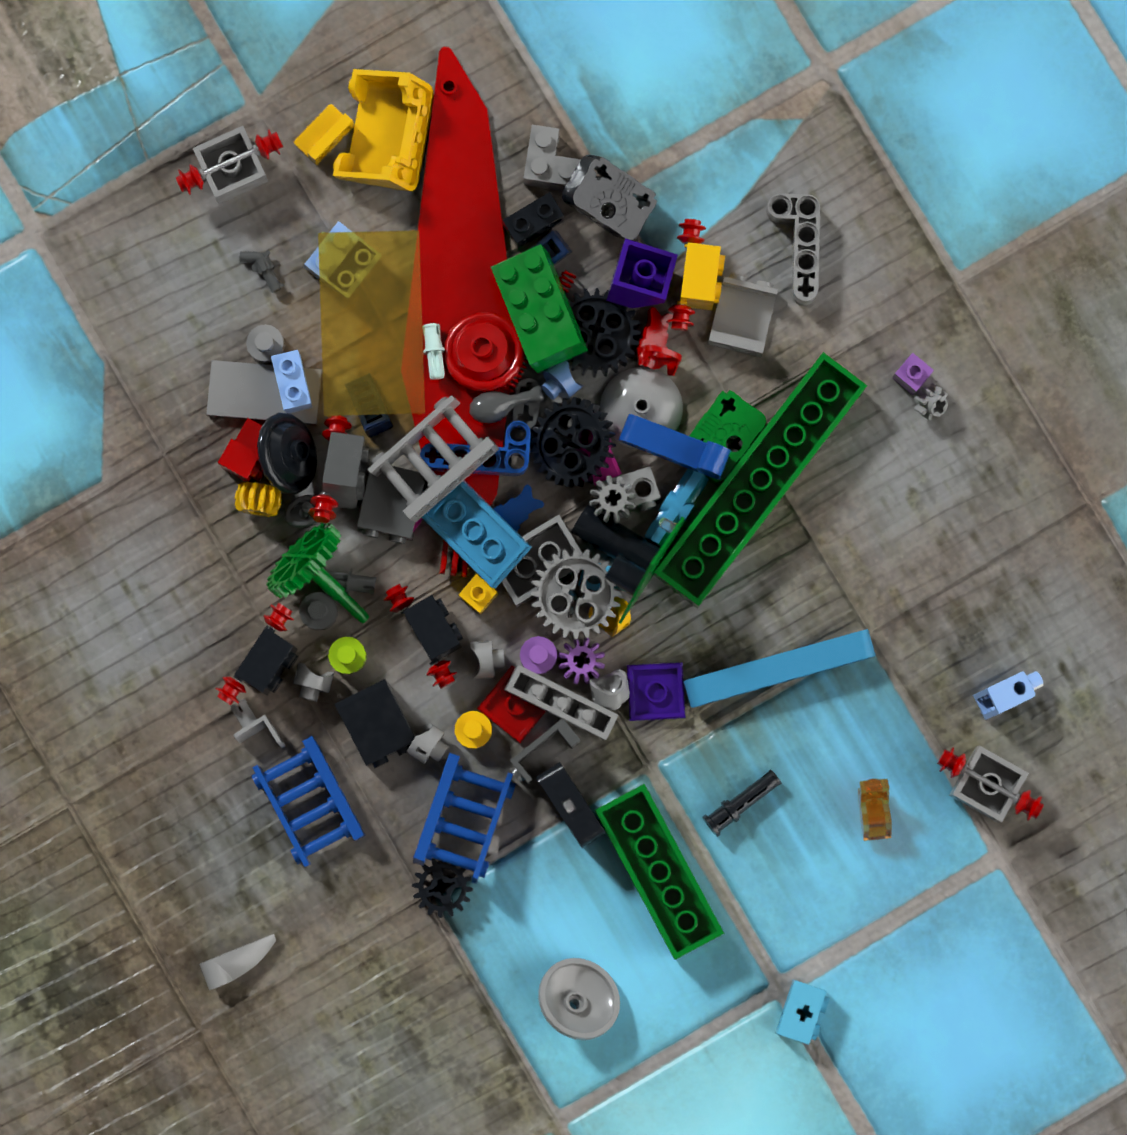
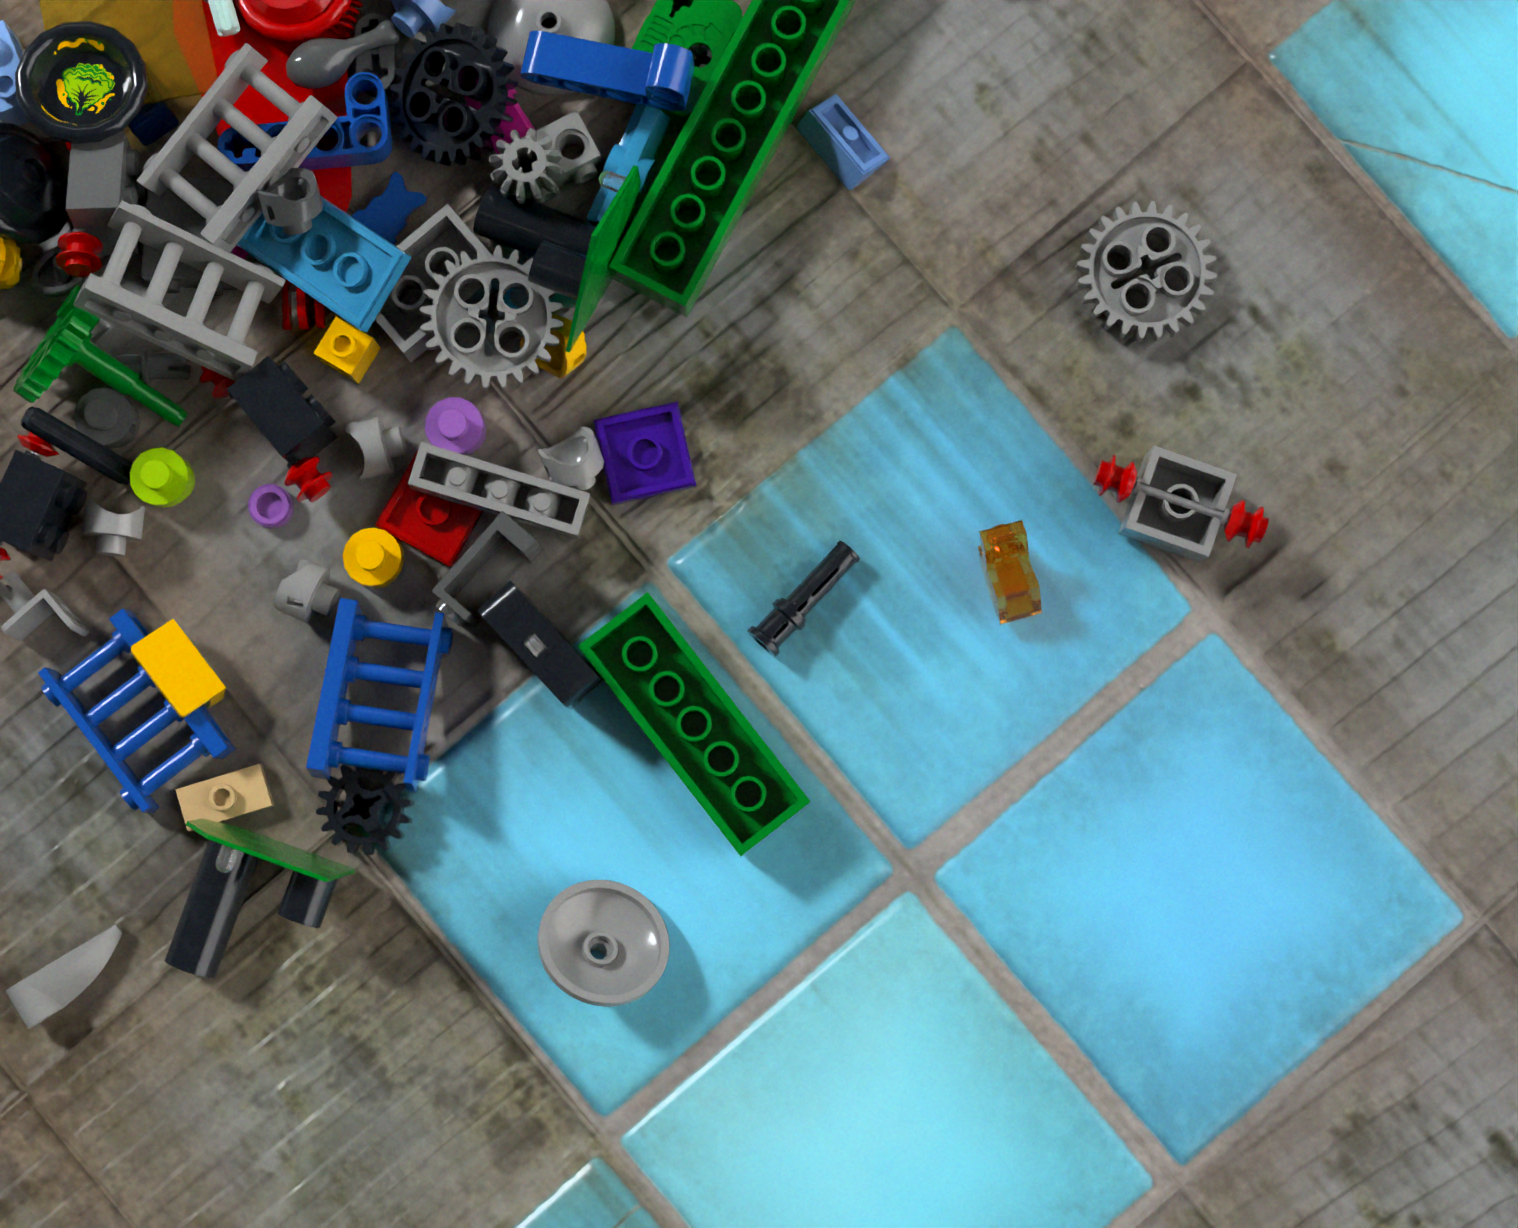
camera: 15 degrees left, 0 degrees up
(301, 628) = (77, 444): none -> black axle
(340, 780) = (178, 669): none -> yellow panel
(342, 400) = (81, 82): none -> black piece
(346, 921) = (224, 881): none -> black piece
(354, 865) = (226, 796): none -> tan plate
(363, 559) = (147, 315): none -> light grey fence
(376, 723) = (217, 570): black slope -> none
(412, 684) = (271, 506): none -> medium lavender tile
(461, 501) = (292, 201): none -> dark grey piece
(576, 652) = (512, 414): medium lavender gear -> none
(779, 668) = (826, 385): dark azure beam -> none
(790, 1023) = (935, 923): medium azure brick -> none
(816, 511) = (842, 141): none -> medium blue slope
(1002, 653) = (1128, 238): none -> light grey gear
(1007, 693) = (1180, 362): light blue torso -> none

